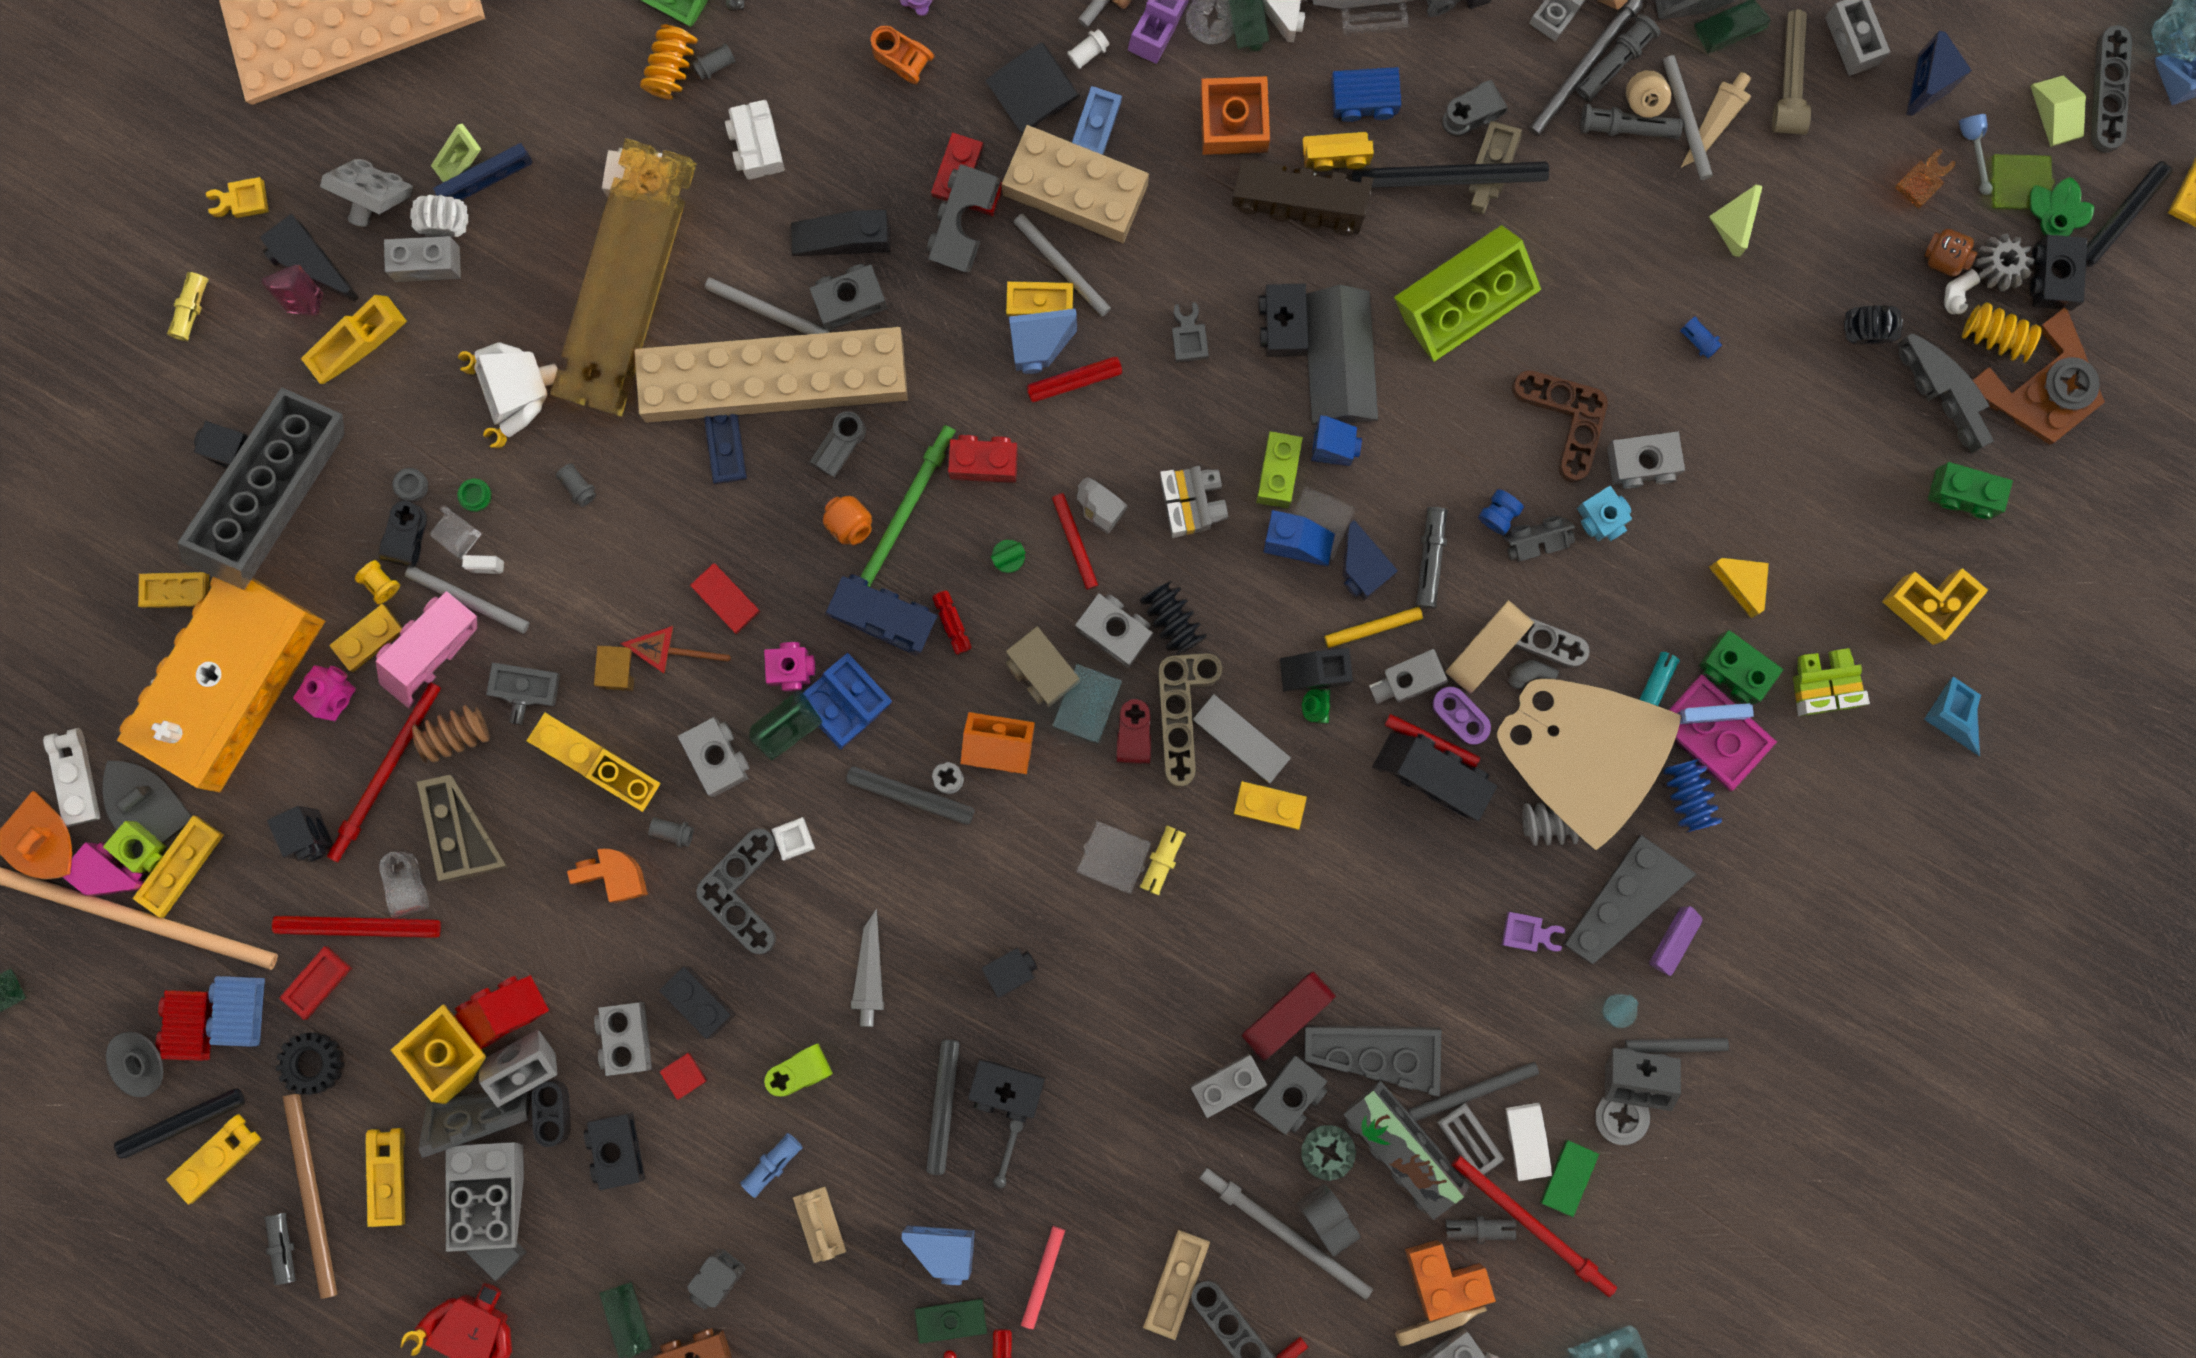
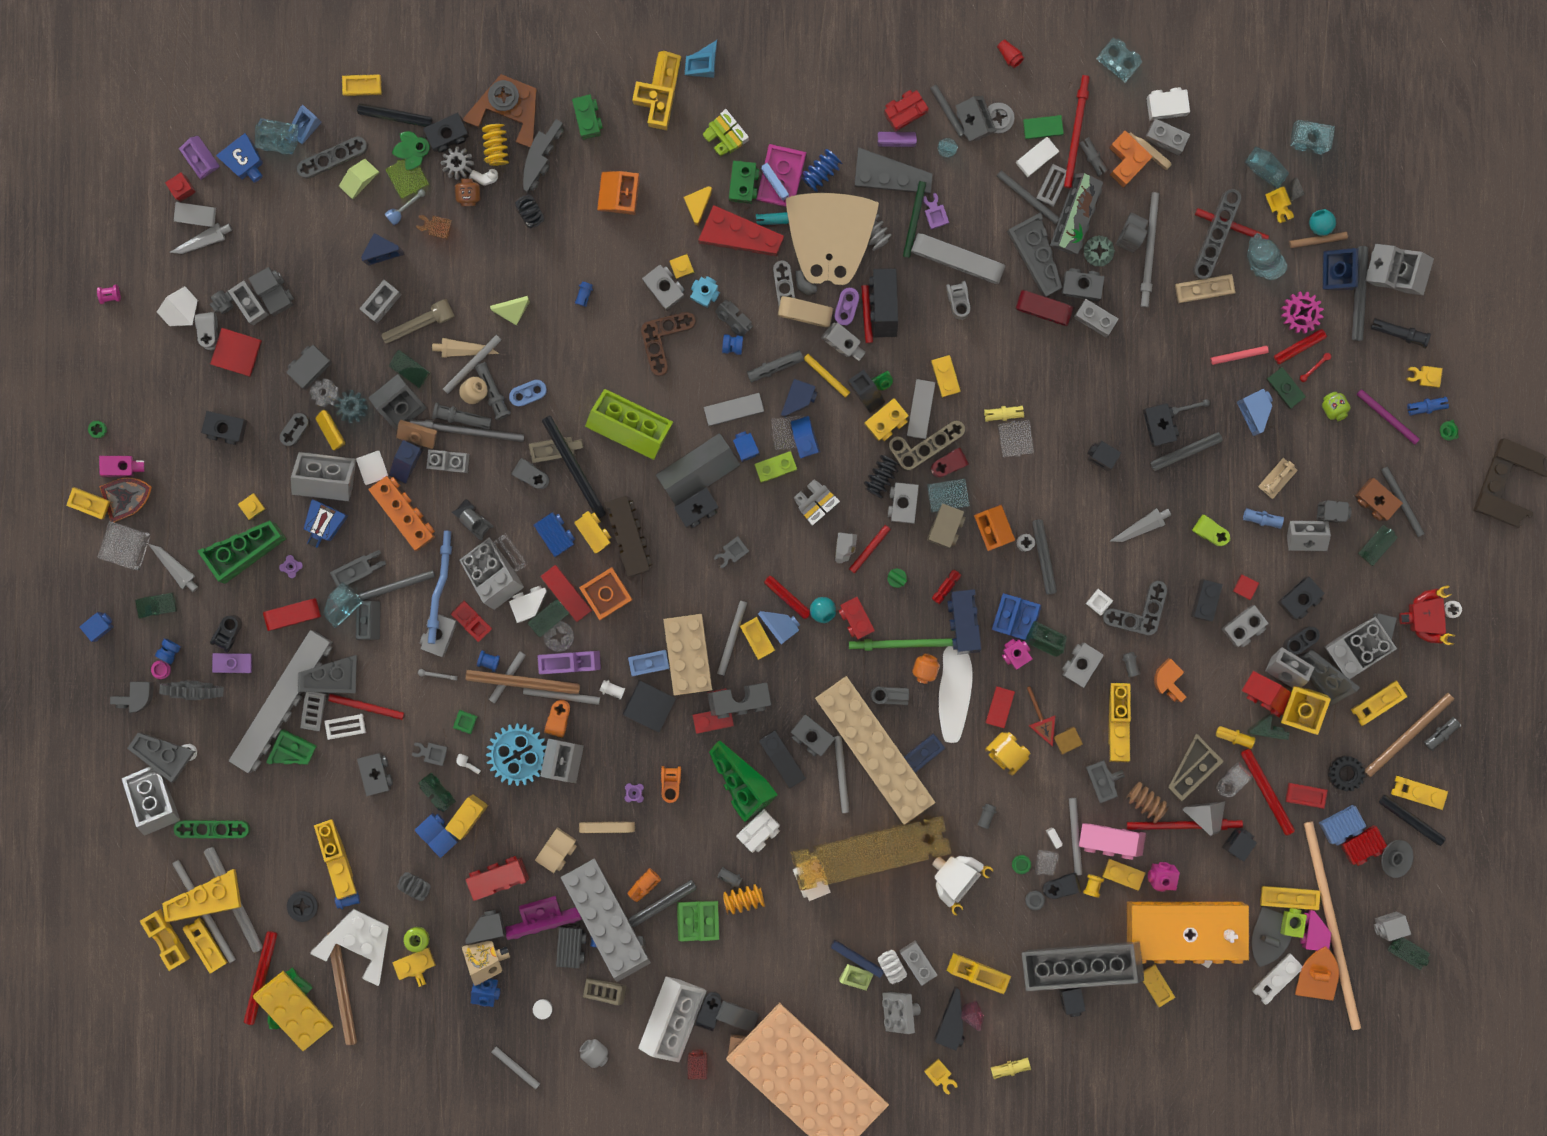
camera: 120 degrees left, 5 degrees up
(36, 993) = (1392, 926): none -> light grey brick
(375, 811) = (1207, 815): none -> light grey slope
(453, 974) = (1263, 728): none -> clear green slope
(467, 926) = (1235, 737): none -> yellow axle
(648, 565) = (1007, 752): none -> yellow brick
(702, 1218) = (1308, 535): none -> light grey brick
(784, 543) = (954, 693): none -> white sticker
(825, 162) = (747, 787): none -> green wedge
(1025, 417) = (822, 609): none -> teal piece
(1254, 676) = (886, 419): none -> yellow brick
(1273, 58) = (566, 593): none -> red slope
(1381, 892) = (958, 296): none -> light grey piece
(1401, 460) = (733, 409): none -> light grey tile
(1439, 927) = (958, 258): none -> light grey beam
(1538, 895) = (914, 219): none -> dark green bar
(1597, 174) = (528, 393): none -> medium blue plate
(1661, 505) = (681, 266): none -> yellow plate
(1673, 608) = (735, 232): none -> red wedge
(1710, 1194) = (1010, 53): none -> red cone
(1714, 979) = (905, 110): none -> red brick
(1826, 475) = (618, 192): none -> orange slope
(1974, 653) = (666, 69): none -> yellow slope

